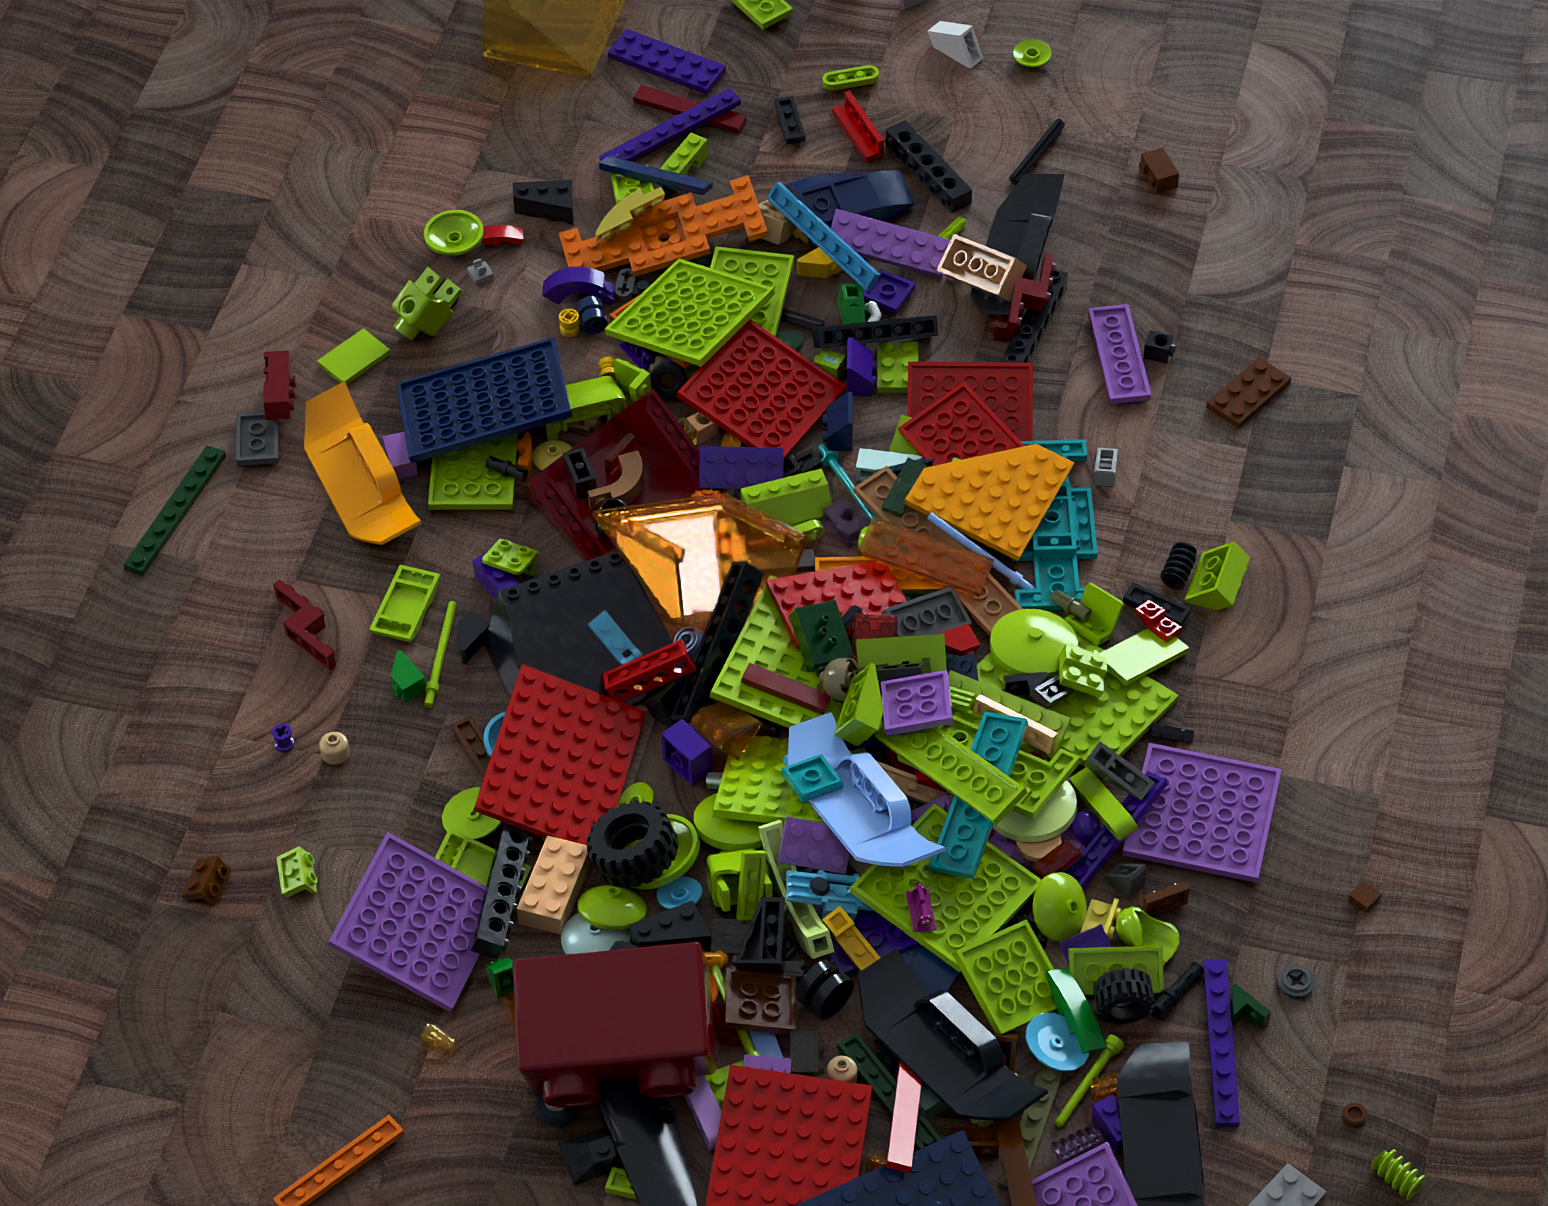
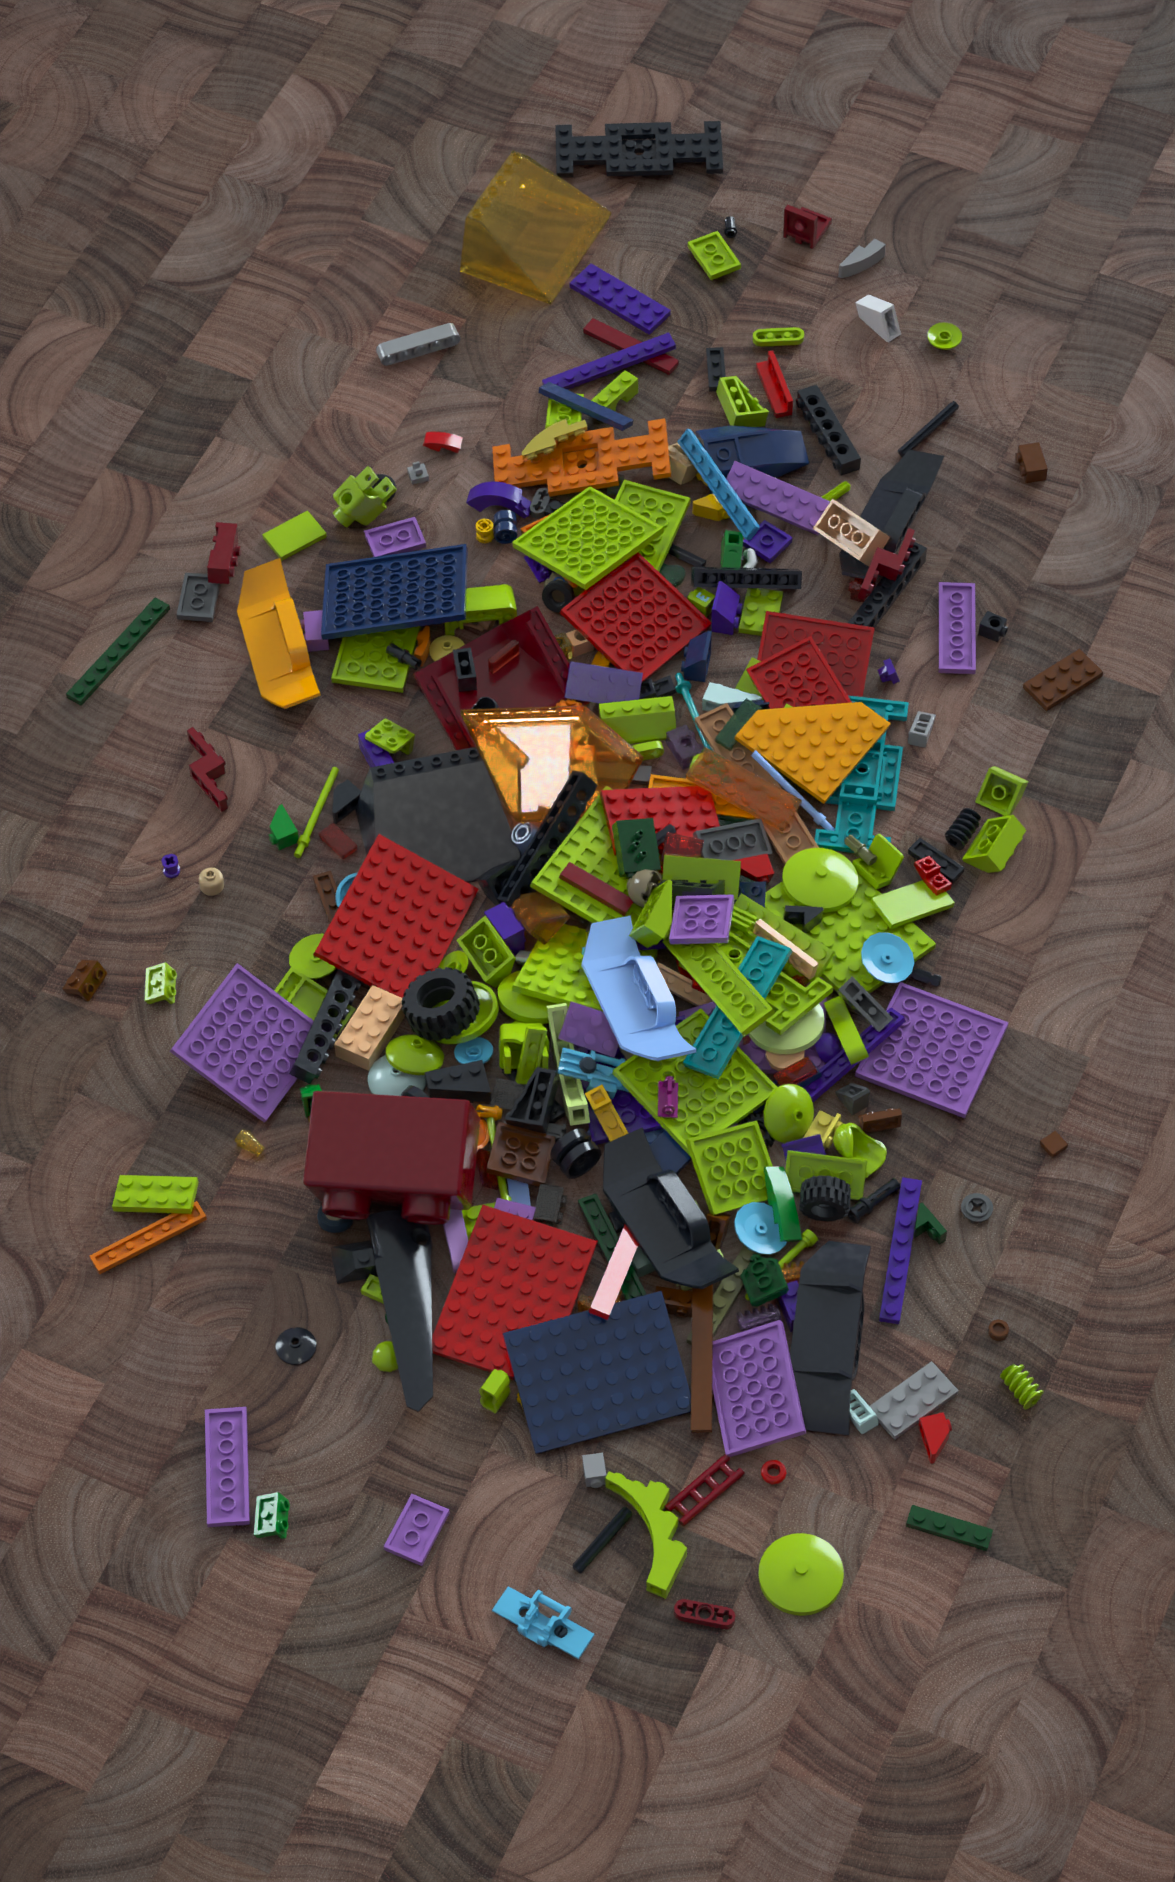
camera: 10 degrees right, 5 degrees up
(338, 1114) = (155, 1194): none -> lime plate
(405, 603) = (295, 763): lime slope -> none
(452, 136) = (418, 344): none -> light grey beam
(453, 232) = (401, 434): lime dish -> none
(469, 344) = (395, 538): none -> medium lavender plate
(471, 682) = (338, 840): none -> clear red tile
(545, 199) = (486, 413): black wedge -> none
(606, 367) = (510, 577): yellow wheel -> none
(613, 638) = (461, 824): medium azure plate -> none
(627, 486) = (503, 687): medium nougat arch -> none
(632, 379) = (527, 591): lime bracket -> none
(646, 668) = (482, 853): red fence -> none
(673, 778) = (487, 952): none -> lime slope
(812, 778) = (600, 970): teal tile -> none
(823, 151) = (739, 404): none -> lime wedge
(842, 1069) = (576, 1223): tan head -> none
(1051, 692) = (826, 924): black hinge -> none
(1055, 411) = (888, 672): none -> dark purple tile
(1075, 1100) = (763, 1280): none -> dark green tile
(1082, 669) = (855, 910): lime plate -> none
(1131, 717) = (887, 957): none -> medium azure piece
(1211, 520) = (1001, 791): none -> lime slope

